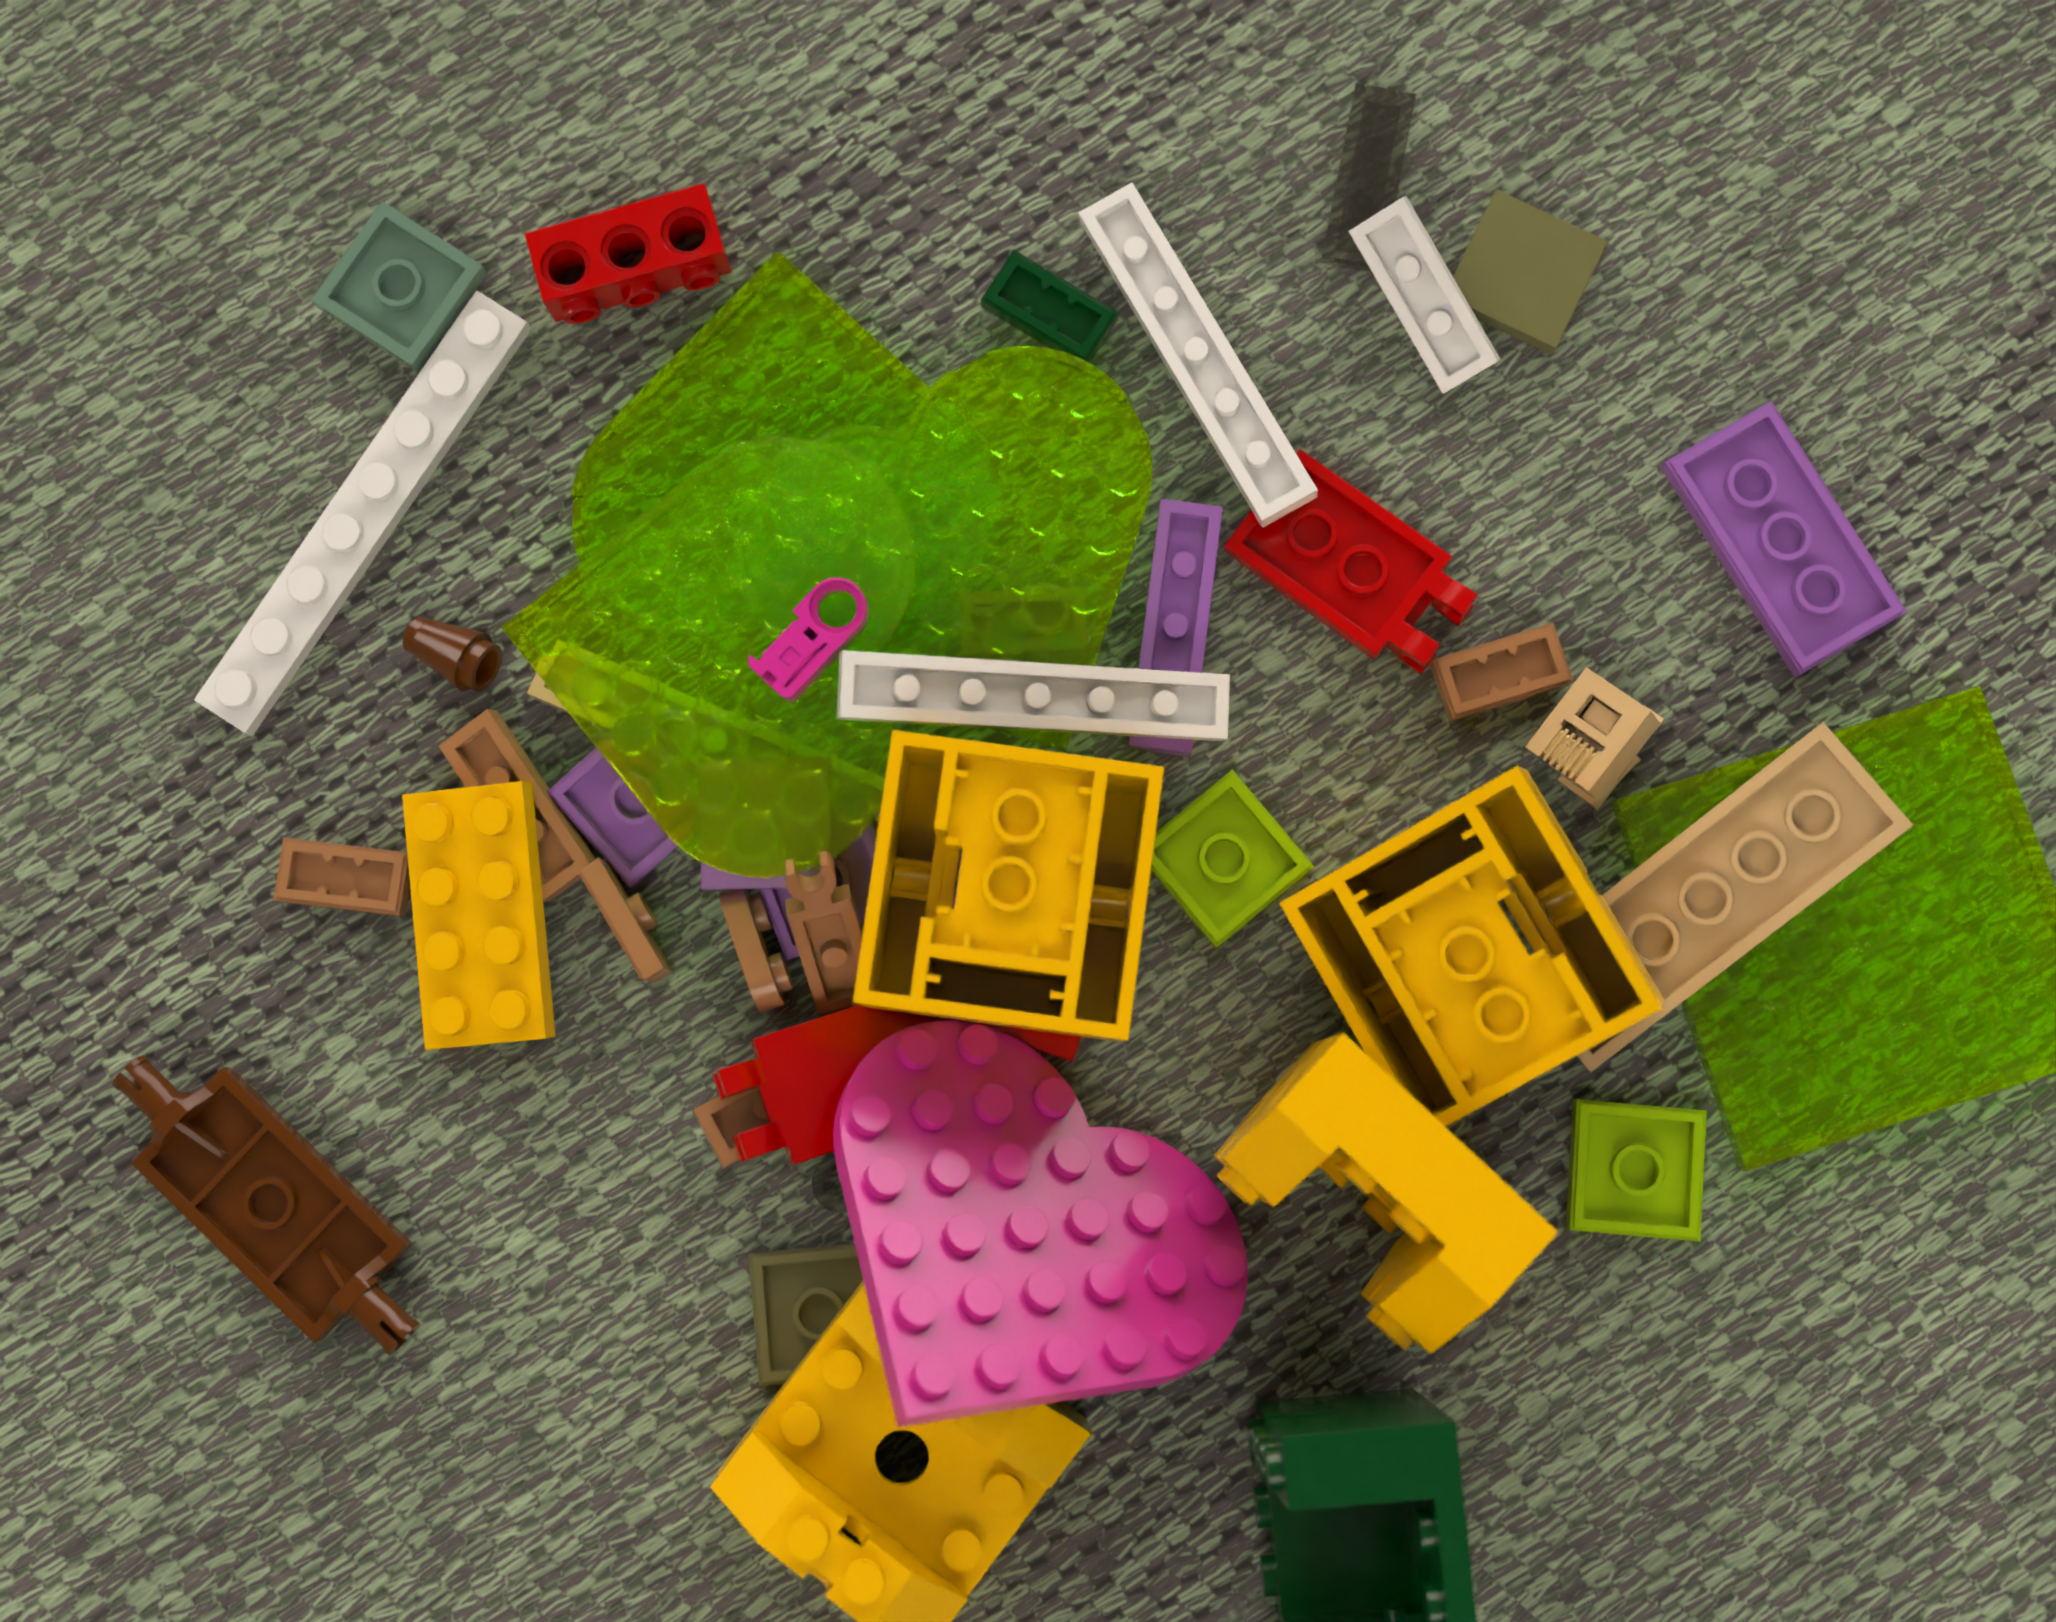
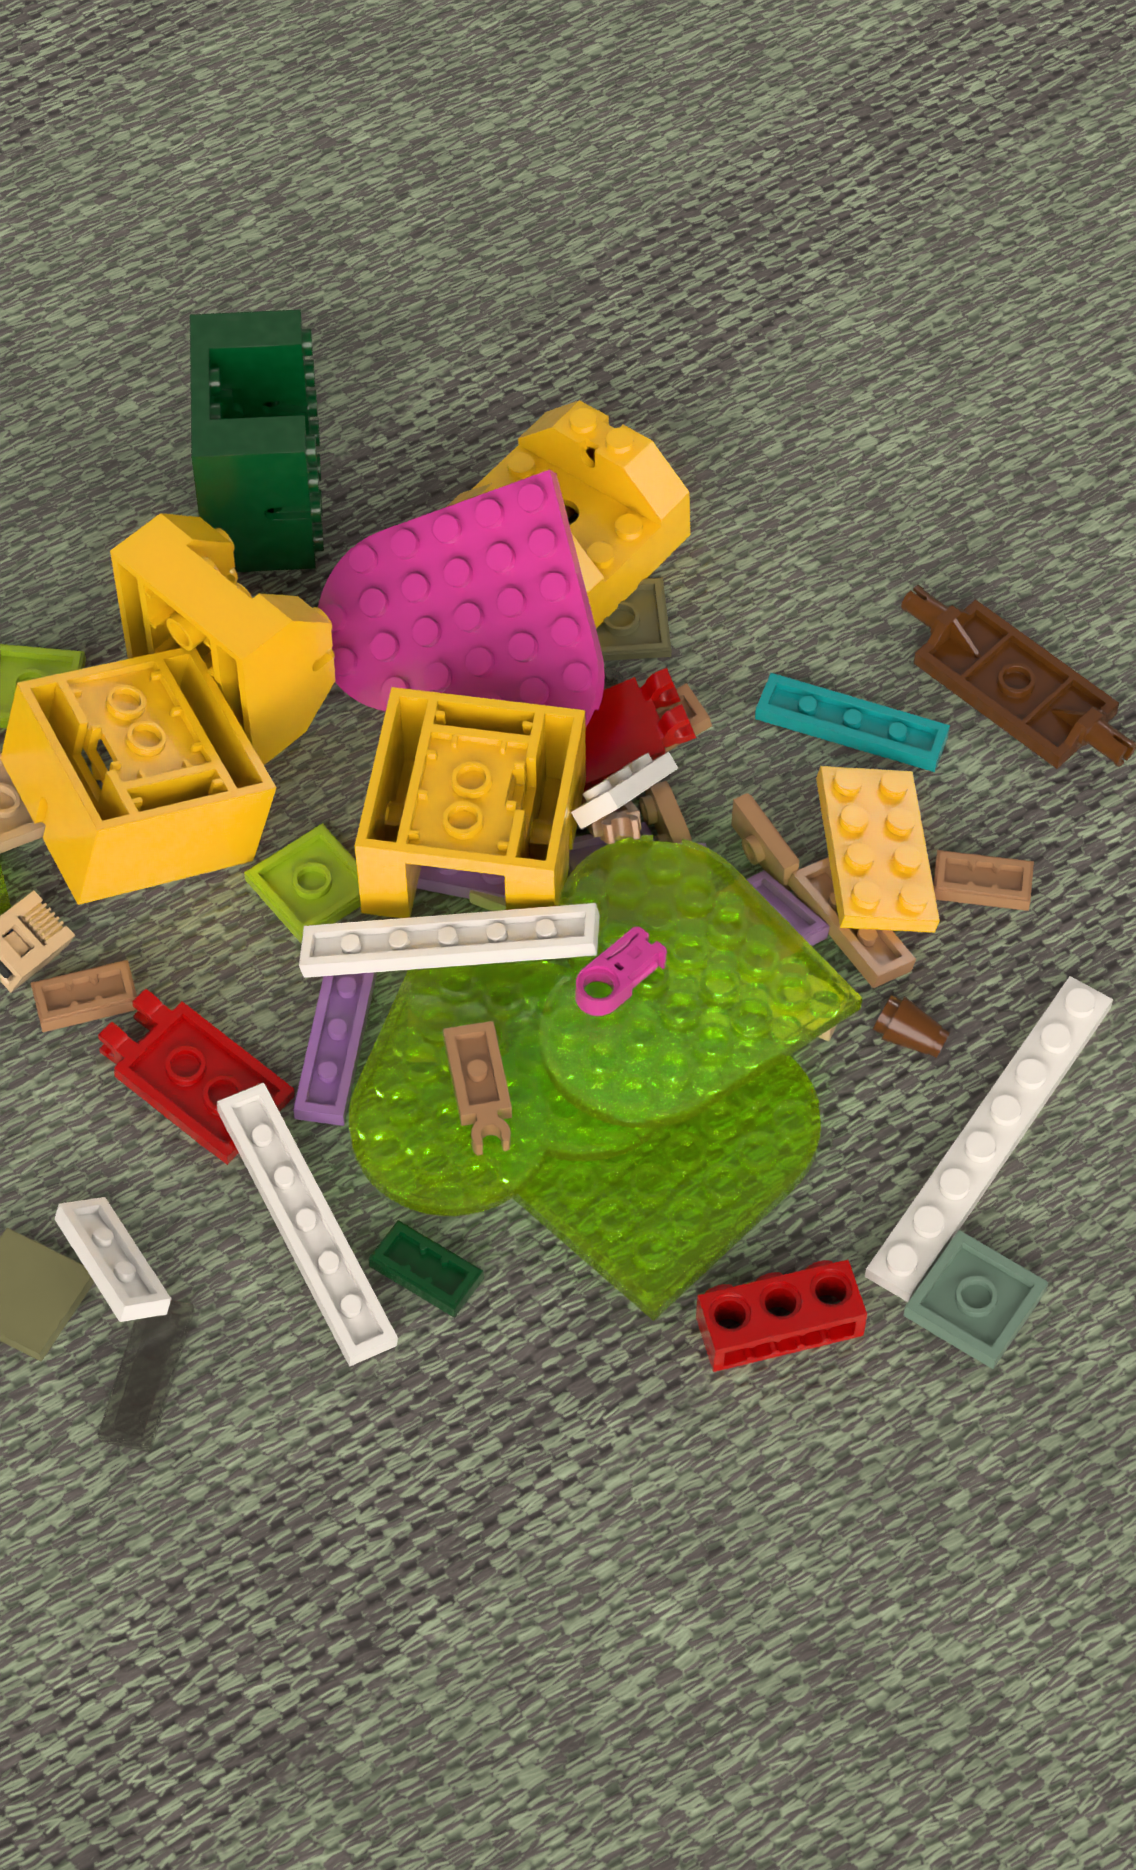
camera: 175 degrees right, 25 degrees down
(501, 1130) = (852, 722): none -> teal plate
(805, 941) = (622, 787): none -> white plate
(990, 498) = (479, 1082): none -> medium nougat plate

